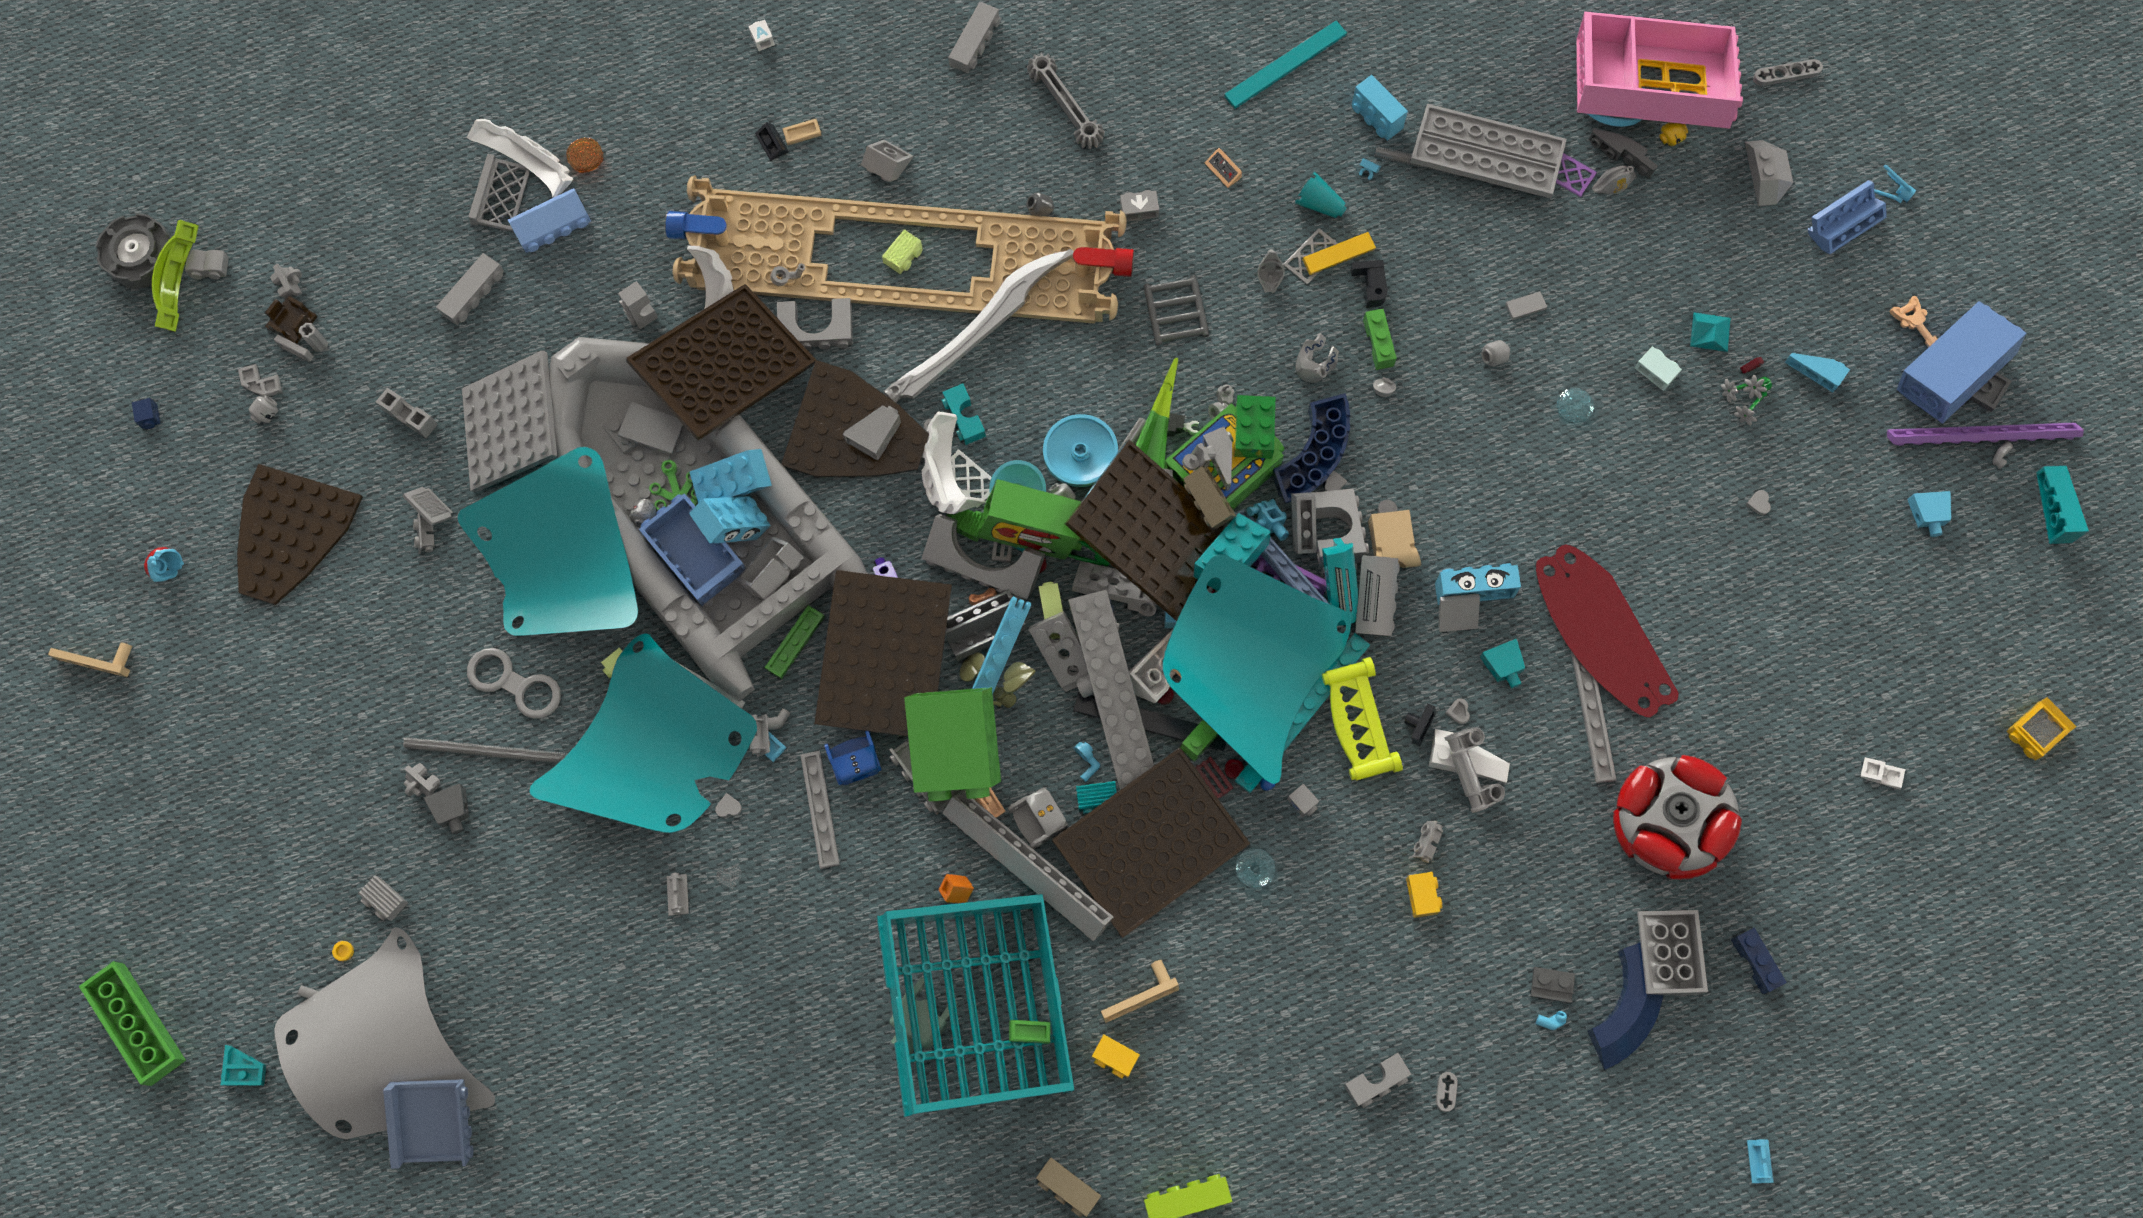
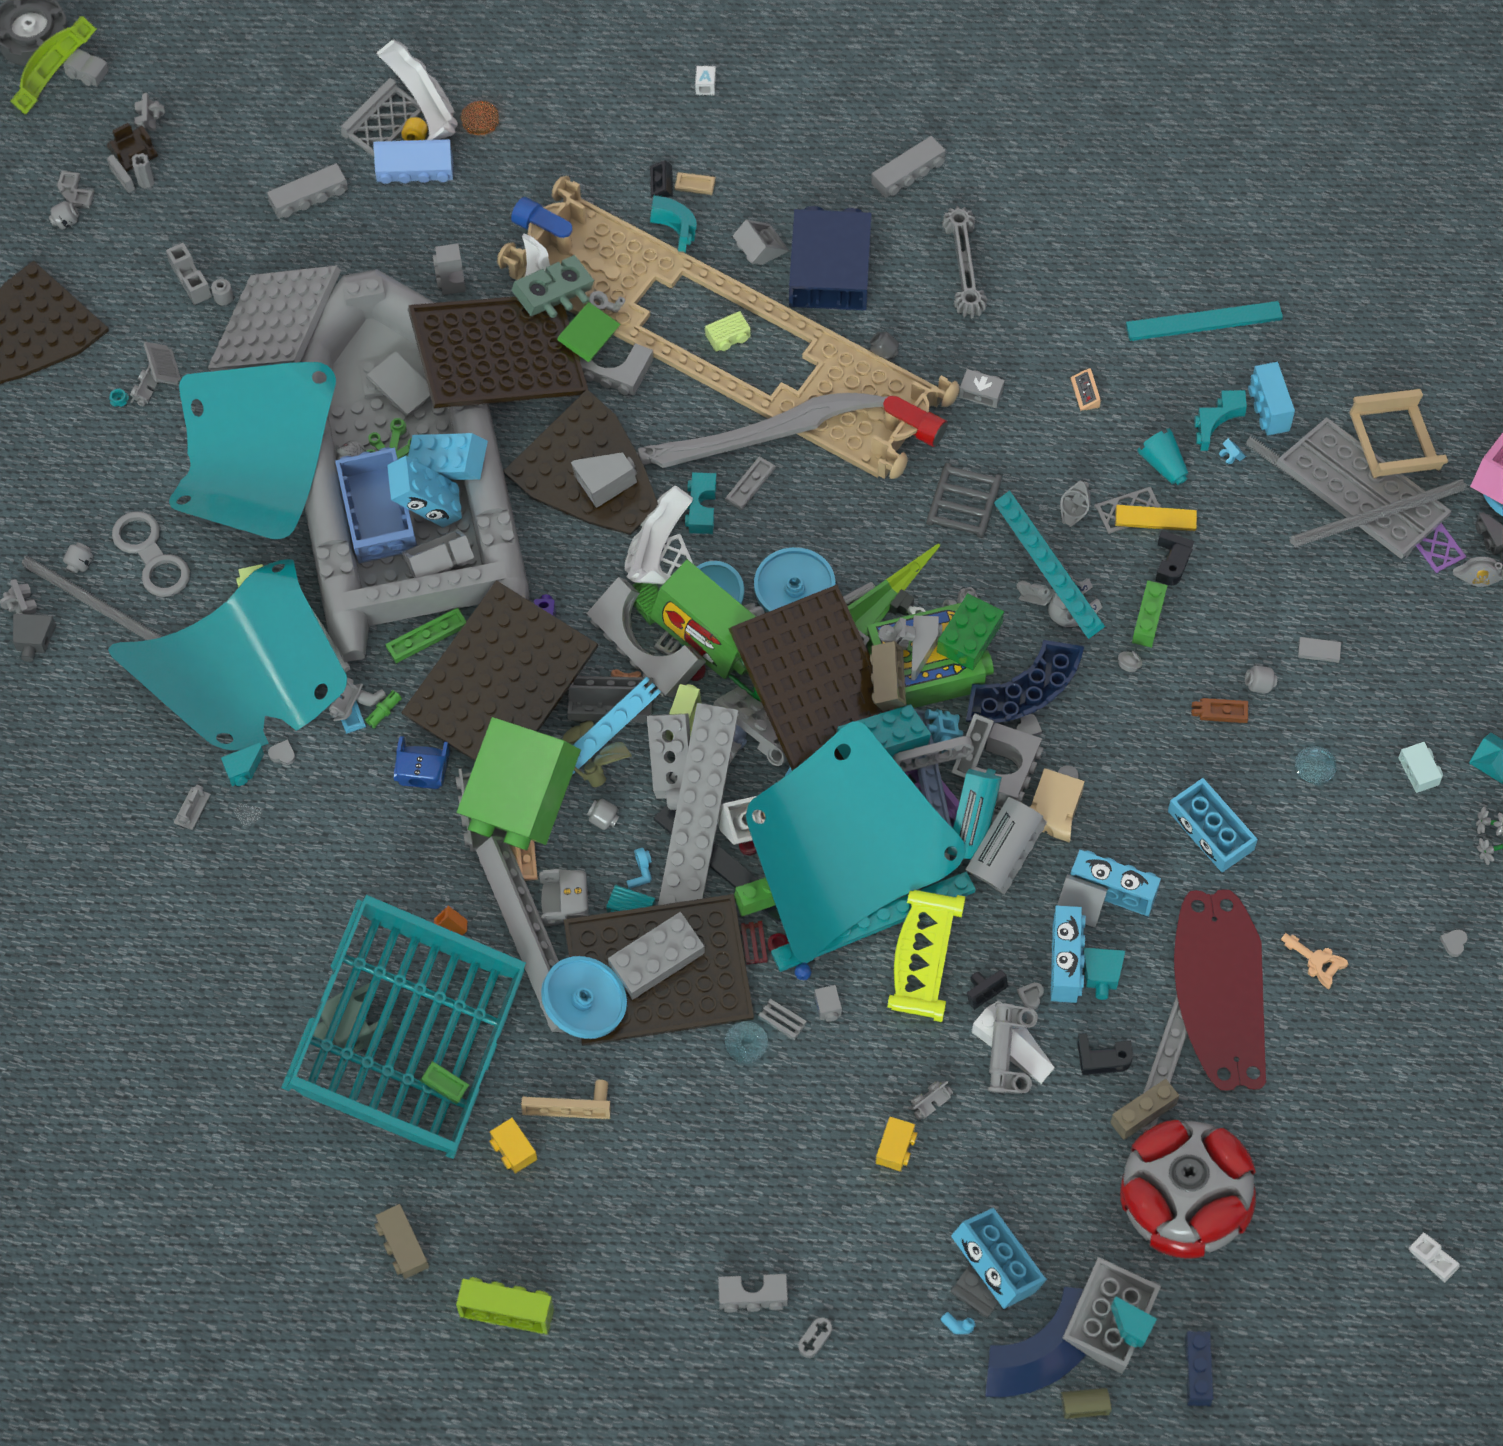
camera: 25 degrees right, 10 degrees down
(406, 550) = (118, 393): none -> teal plate
(446, 416) = (222, 292): none -> light grey brick
(451, 718) = (78, 558): none -> light grey head
(534, 192) = (414, 129): none -> yellow head
(700, 835) = (242, 764): none -> teal slope
(737, 281) = (553, 286): none -> sand green piece
(788, 307) = (588, 332): none -> bright green tile
(794, 725) = (383, 709): none -> bright green pin
(804, 168) = (677, 216): none -> teal arch
(820, 810) = (364, 795): light grey tile -> none
(955, 148) = (830, 259): none -> dark blue brick
(993, 377) = (750, 483): none -> light grey tile
(1030, 728) = (603, 814): none -> light grey head
(1108, 901) = (584, 997): none -> medium azure dish
(1147, 833) = (656, 955): none -> light grey brick
(1272, 832) = (767, 1009): none -> light grey tile
(1280, 365) = (1035, 593): none -> light grey hinge
(1280, 546) = (961, 747): none -> light grey beam
(1282, 336) = (1049, 565): none -> teal plate
(1344, 129) = (1228, 406): none -> teal arch
(1472, 664) = (1067, 954): none -> medium azure brick
(1473, 67) = (1392, 402): none -> tan piece
(1478, 394) = (1221, 710): none -> dark orange hinge
(1514, 168) = (1377, 513): none -> light grey axle
(1526, 496) = (1212, 825): none -> medium azure brick
(1546, 738) = (1104, 1059): none -> black piece
(1558, 951) = (998, 1258): none -> medium azure brick
(1603, 765) = (1144, 1109): none -> dark tan brick
(1664, 570) = (1317, 960): none -> light nougat piece
(1686, 1034) = (1086, 1403): none -> olive brick
(1697, 954) = (1132, 1322): none -> teal slope

